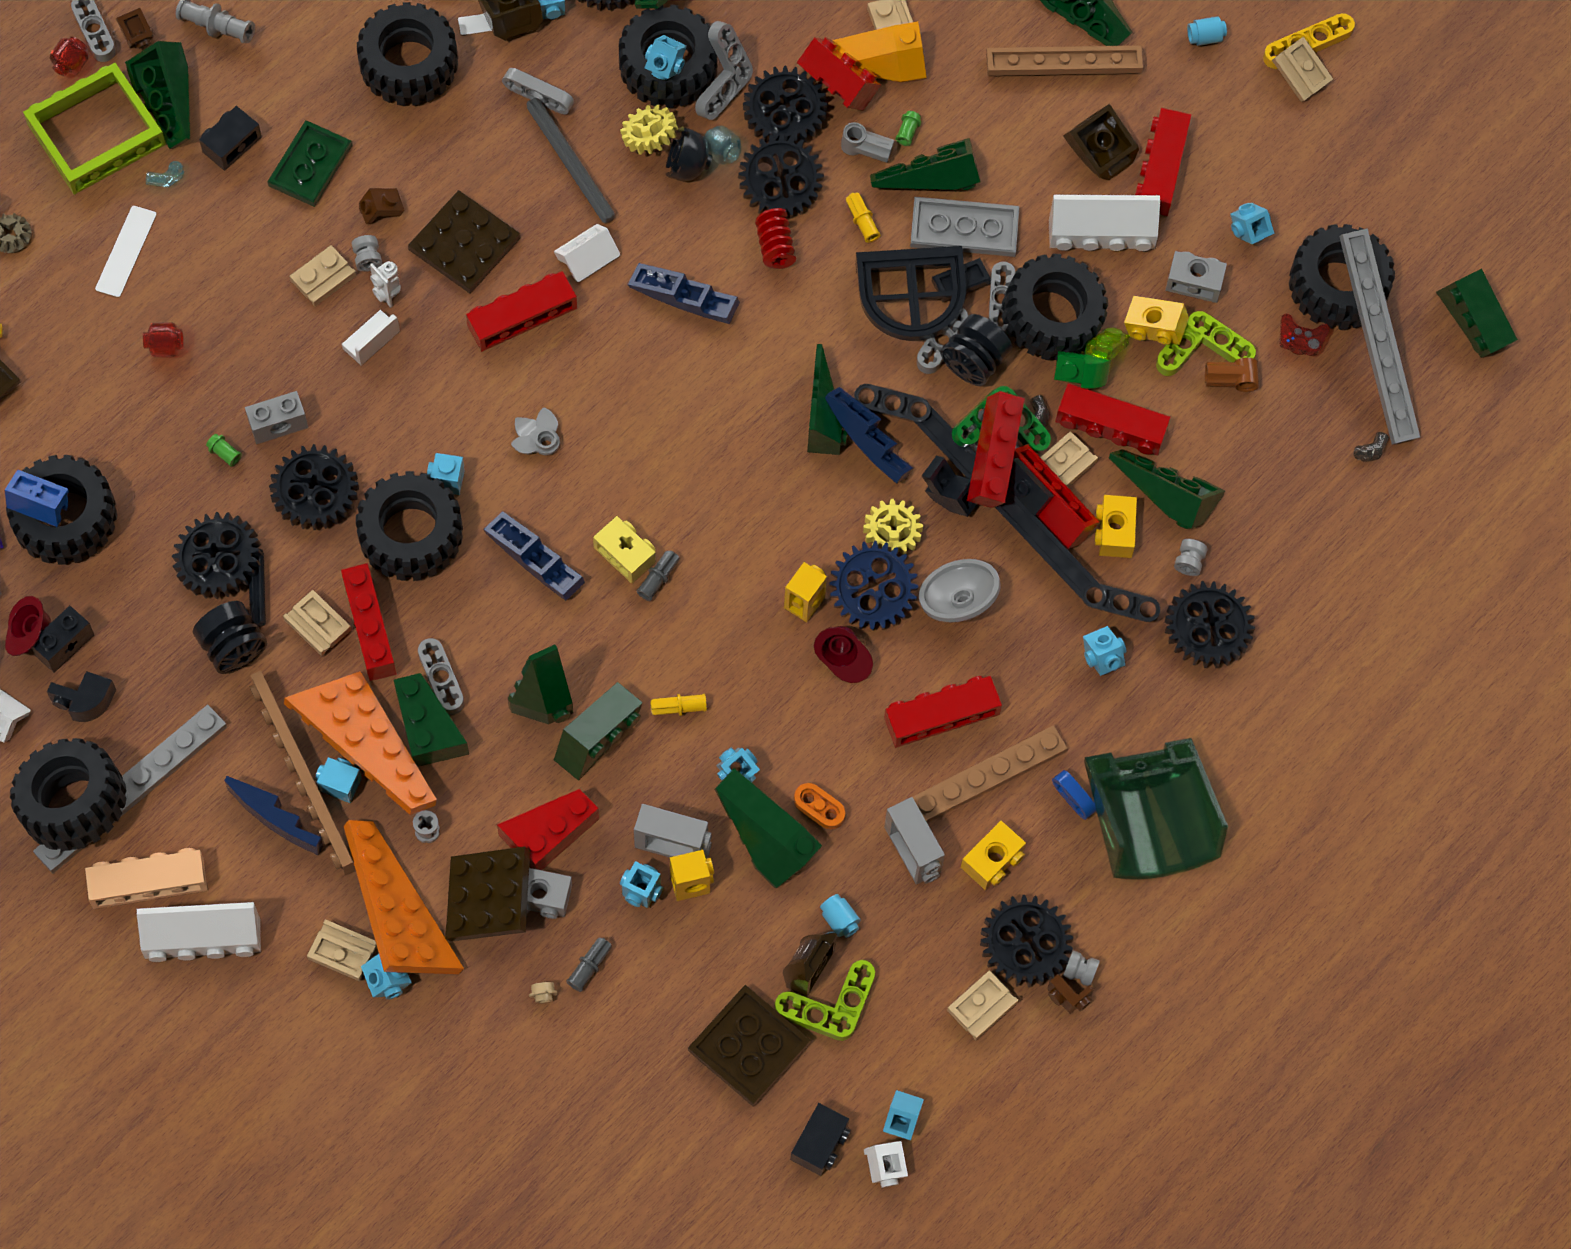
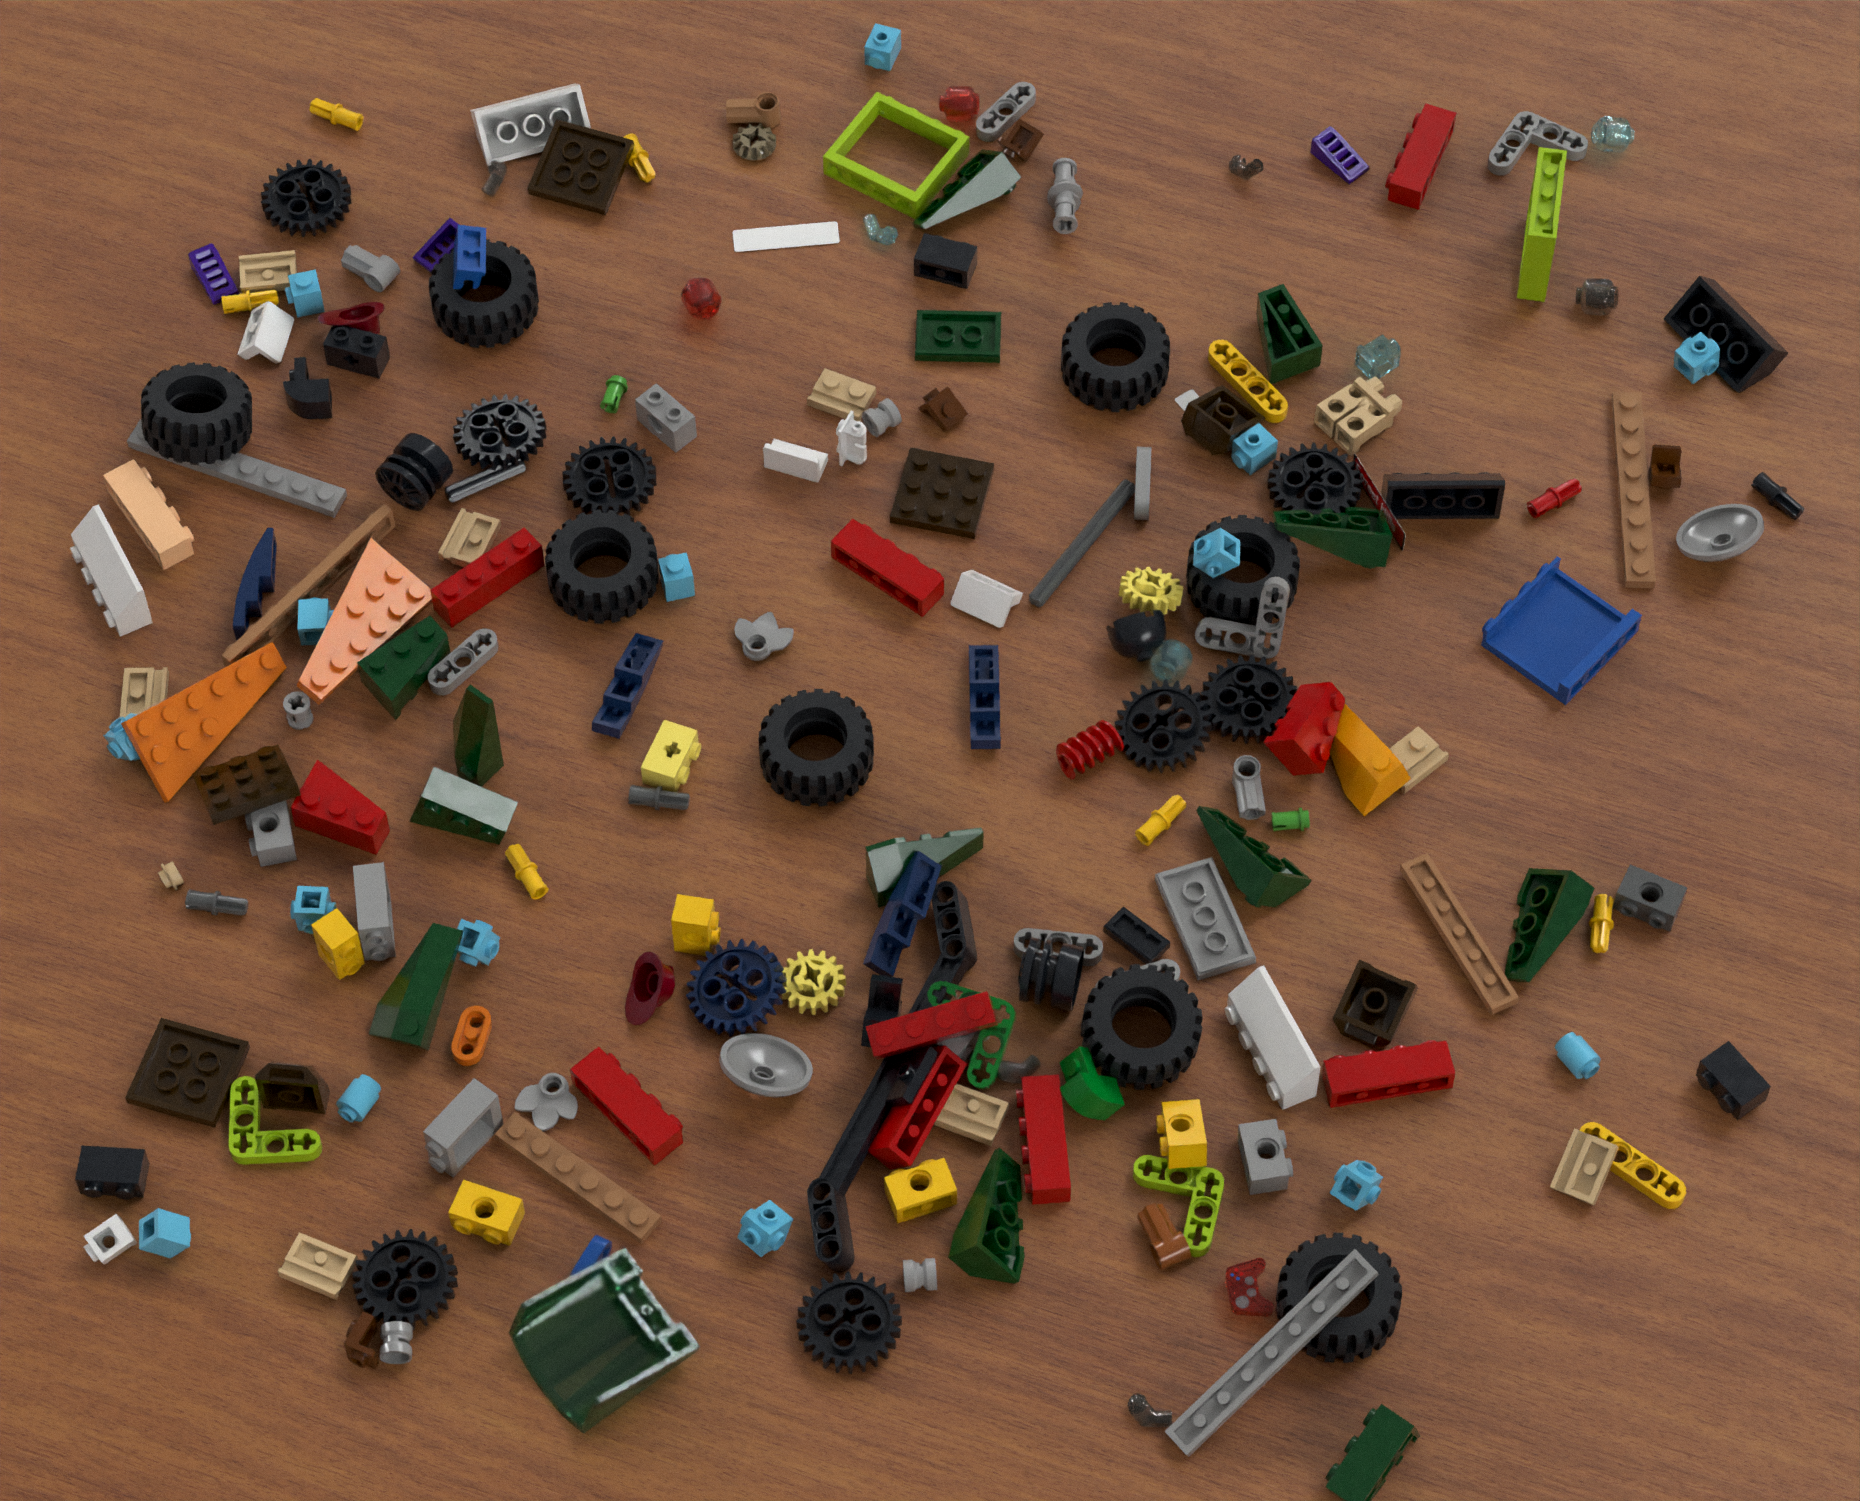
camera: 70 degrees right, 10 degrees down
(677, 401) = (812, 715): none -> black tyre
(911, 261) = (1126, 874): black window -> none
(911, 774) = (545, 1105): none -> light grey plate
(1108, 343) = (1127, 1096): clear neon green plate -> none

